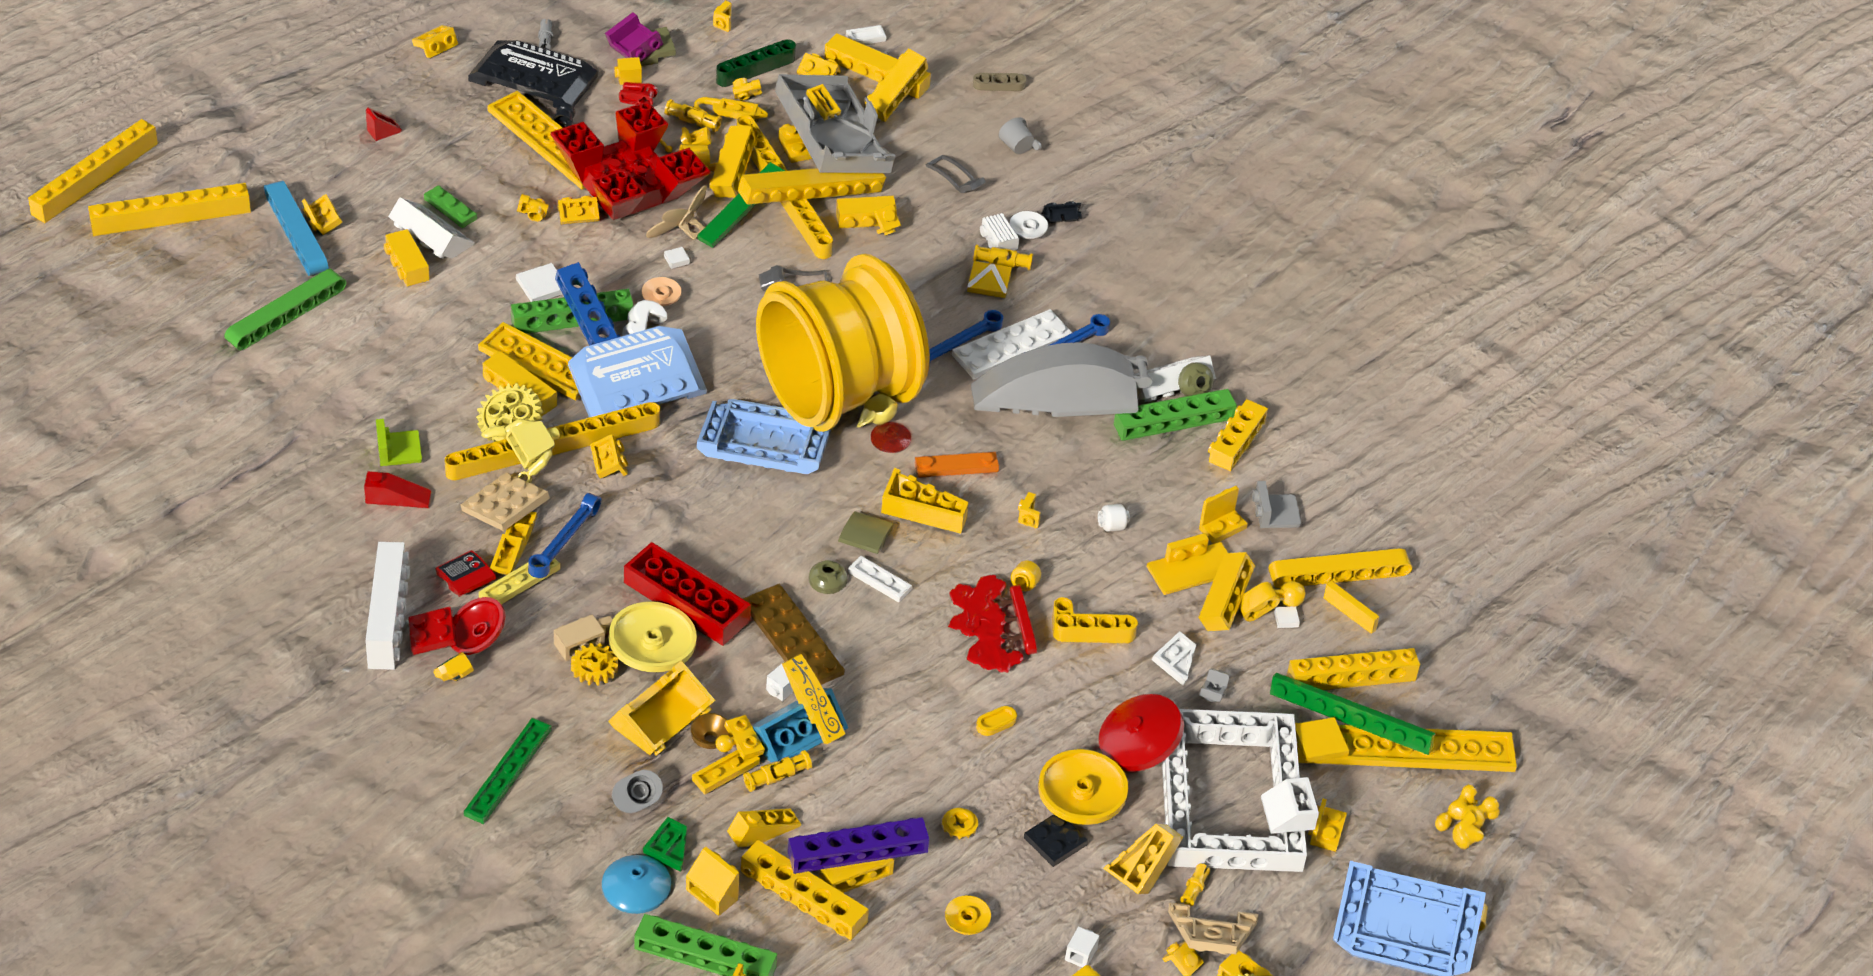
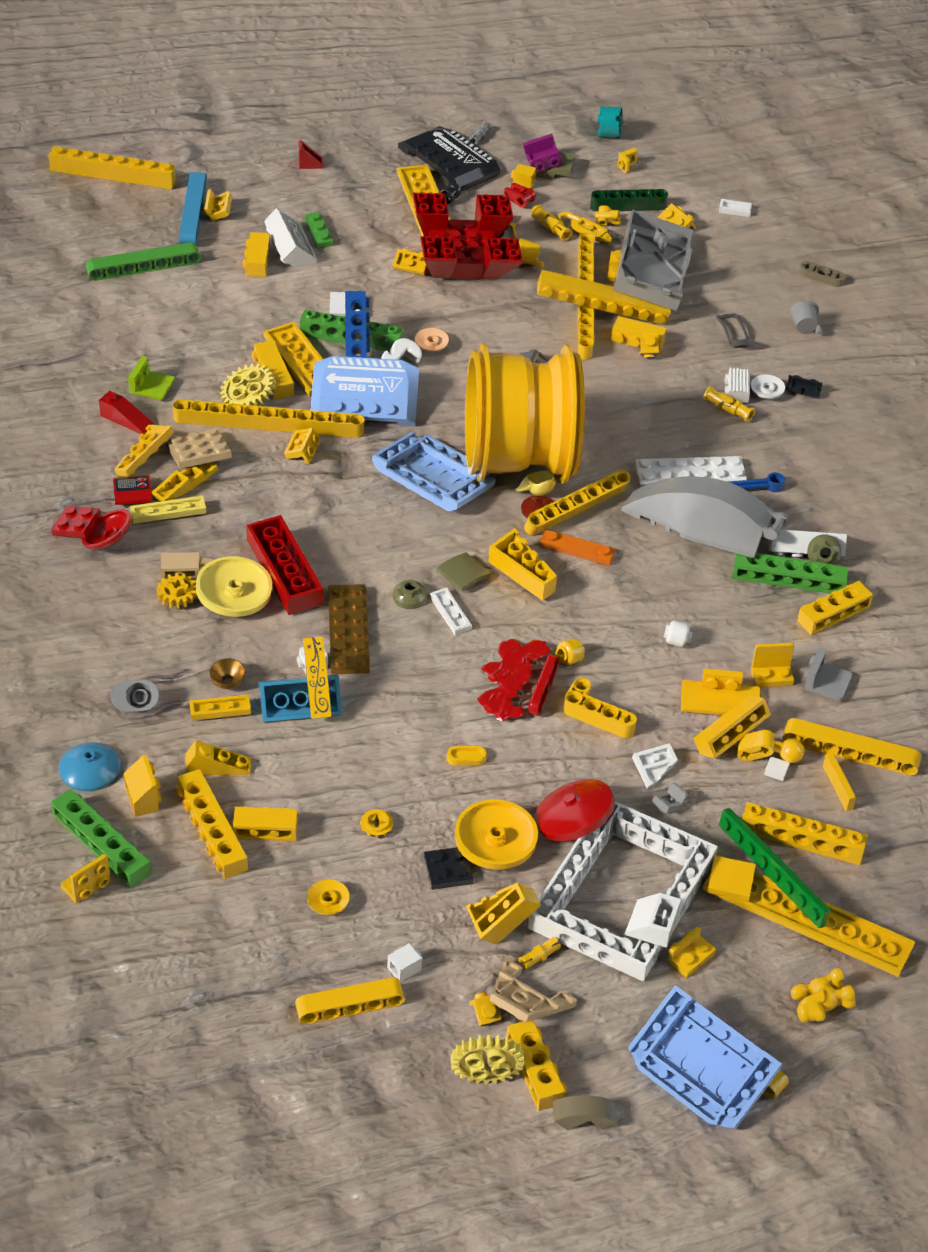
camera: 30 degrees right, 0 degrees up
(92, 171) = (79, 126): yellow brick -> none
(387, 605) = (51, 490): white brick -> none
(436, 40) = (393, 113): yellow bracket -> none
(446, 518) = (147, 445): none -> yellow wing
(454, 668) = (70, 554): yellow rock -> none
(507, 771) = (56, 644): green tile -> none
(529, 441) = (242, 412): light yellow torso -> none
(535, 208) = (378, 250): yellow plate -> none
(589, 507) = (260, 473): blue piece -> none
(663, 709) = (201, 643): yellow windscreen -> none
(668, 844) = (134, 744): green wing -> none
(676, 257) = (464, 320): white tile -> none
(681, 218) = (477, 289): tan piece -> none
(698, 137) = (542, 239): yellow bracket -> none
(729, 215) = (523, 303): green tile -> none
(732, 161) = (556, 260): yellow brick -> none
(742, 736) = (246, 687): yellow plate -> none
(784, 768) = (260, 724): yellow piece -> none
(820, 103) = (655, 250): yellow tile -> none
(858, 845) = (271, 803): dark purple brick -> none
(868, 61) = (726, 231): yellow brick -> none
(897, 83) = (727, 247): yellow brick -> none
(928, 417) = (586, 497): none -> yellow beam
(969, 333) = (643, 453): blue piece -> none
(989, 279) = (706, 417): yellow tile -> none
(1027, 514) = (608, 602): yellow bracket -> none

